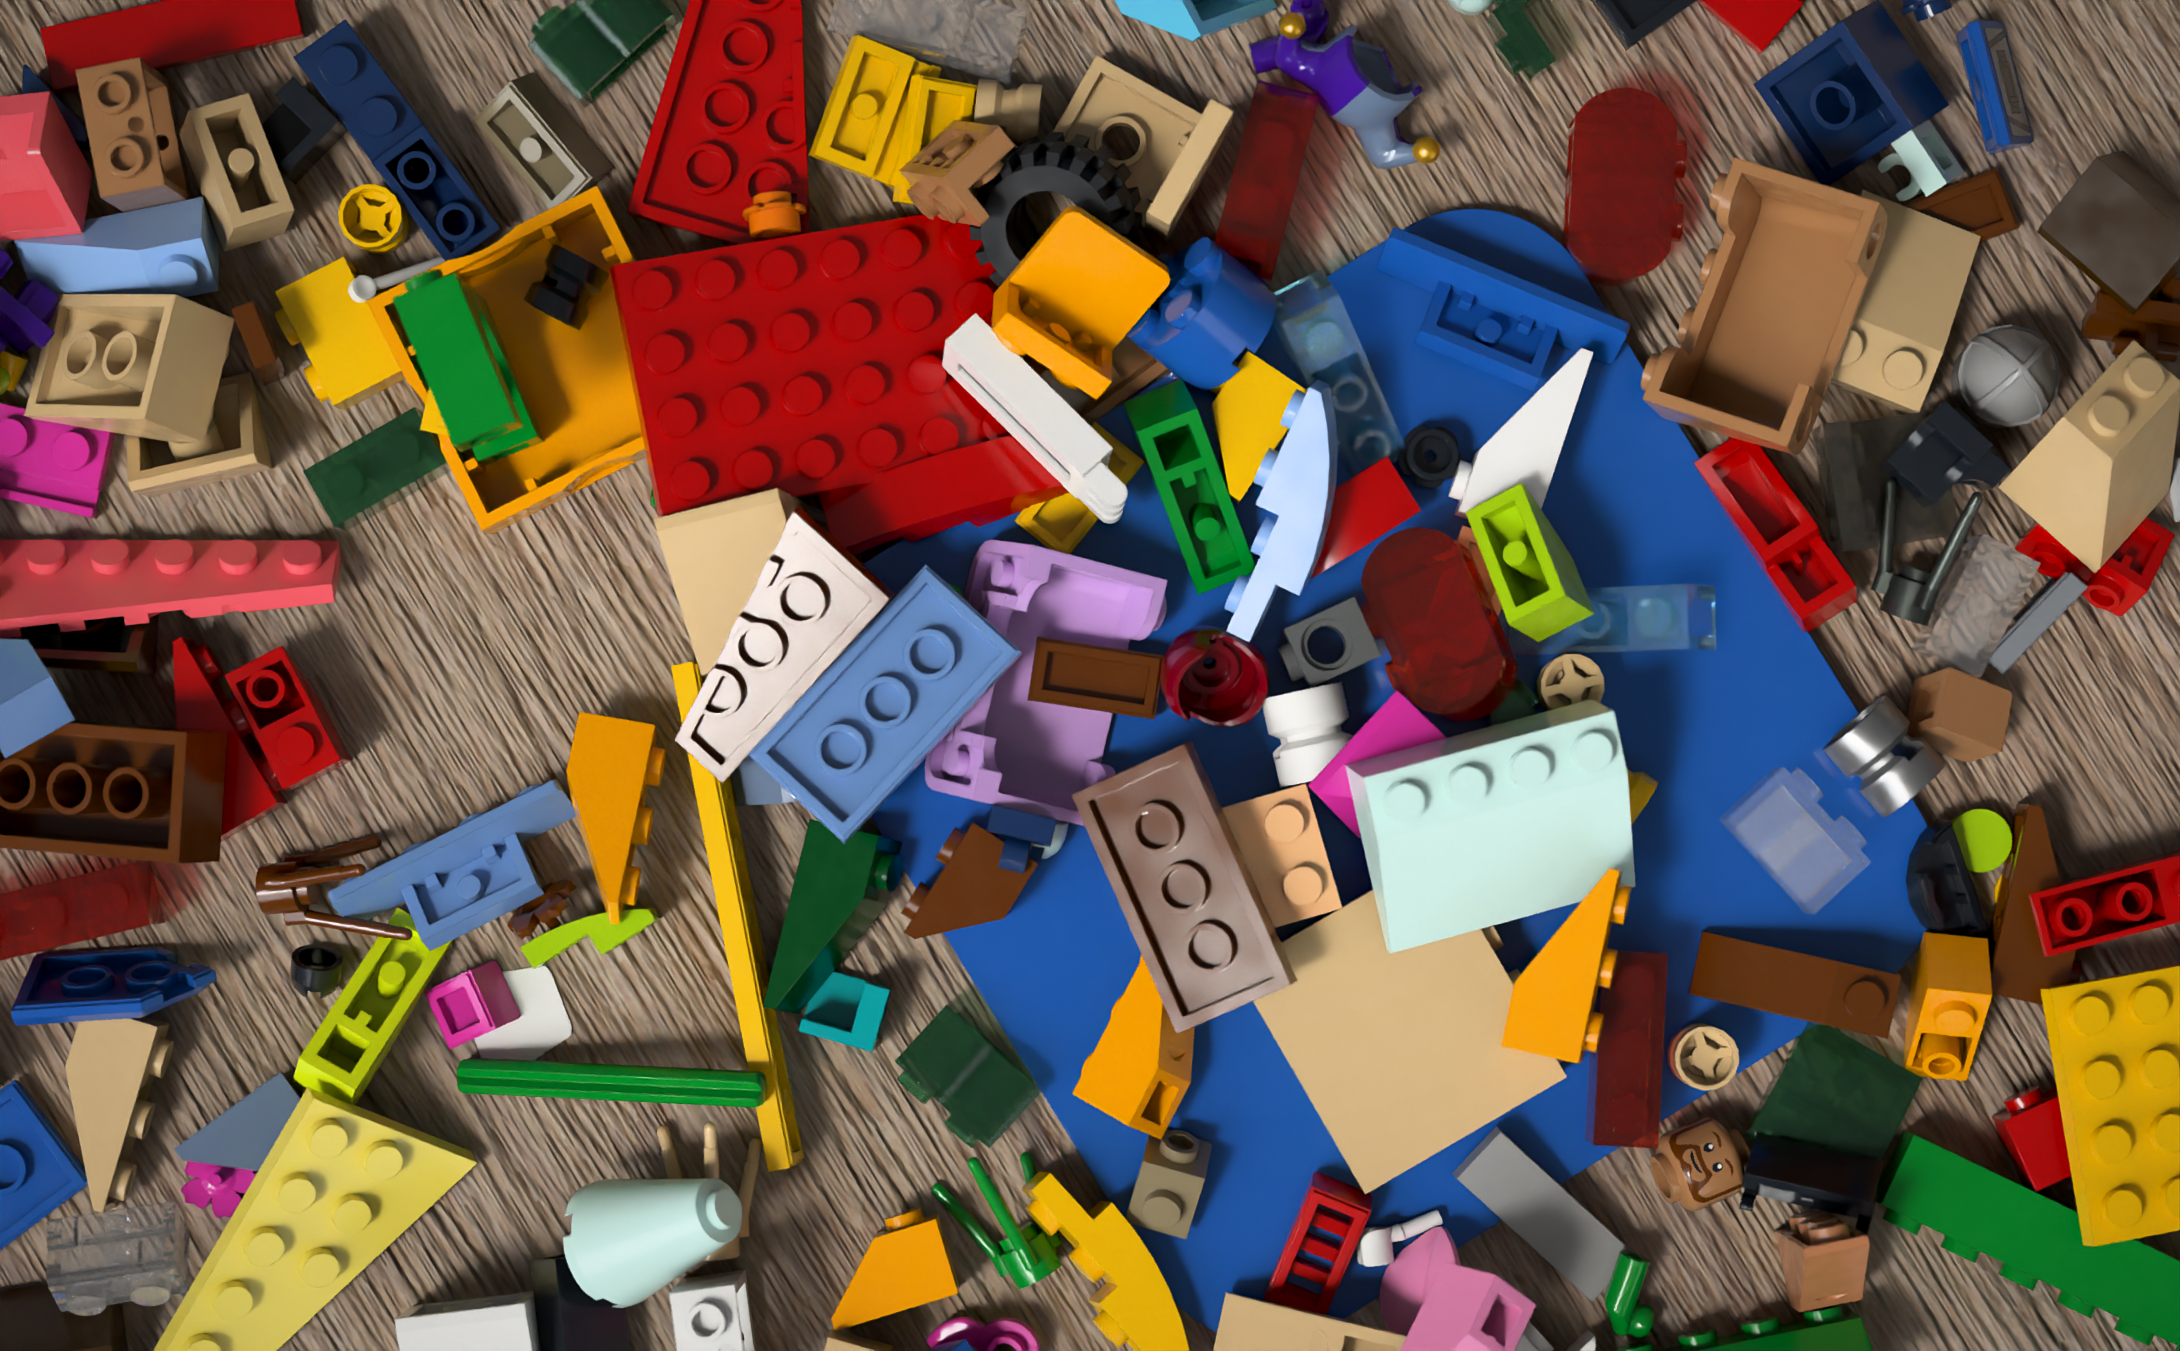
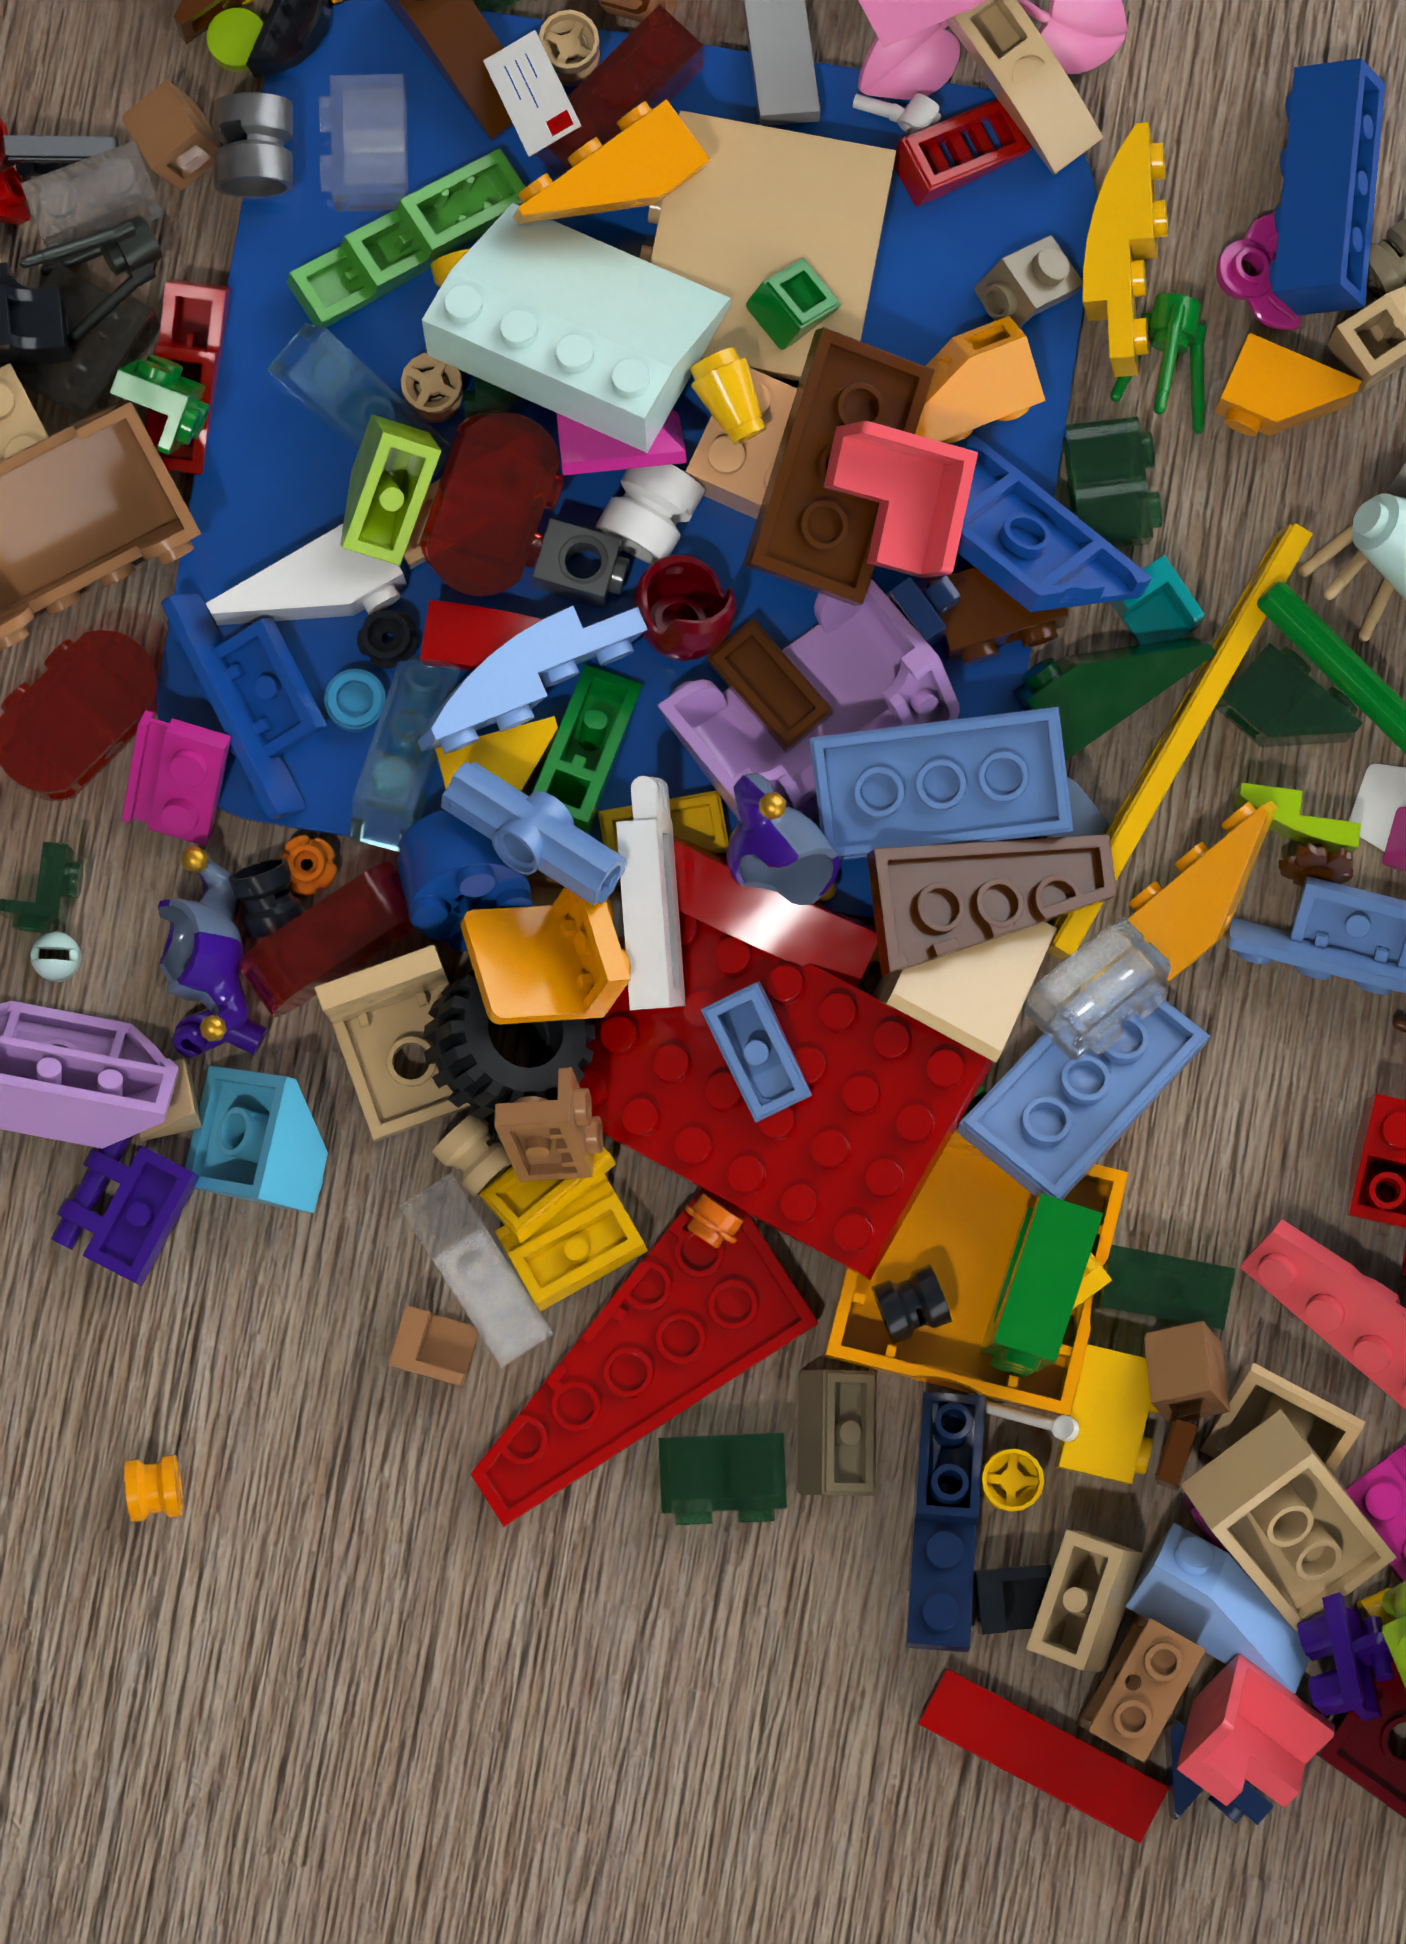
camera: 140 degrees left, 5 degrees down
(305, 413) = (1186, 1372): none -> medium nougat panel
(577, 572) = (1062, 1115): none -> medium blue tile
(626, 655) = (1099, 989): none -> clear brick
(677, 1015) = (1284, 706): none -> clear green slope
(853, 373) = (756, 1051): none -> medium blue slope
(970, 541) = (779, 846): none -> piece
(988, 968) = (1038, 545): none -> blue wing
(1100, 918) = (919, 493): none -> coral panel
(1169, 382) = (533, 833): none -> medium blue piece
(1320, 229) = (323, 869): none -> orange plate
(1320, 869) = (729, 394): none -> yellow cone
(1338, 994) = (791, 303): none -> green slope
(1343, 170) = (266, 896): none -> black wheel
(1412, 386) = (355, 700): none -> dark azure tile
(1497, 200) = (176, 778): none -> dark pink plate
(1694, 790) = (407, 240): none -> bright green slope
(1696, 986) = (532, 93): none -> white sticker
(1772, 487) = (161, 387): none -> green bracket

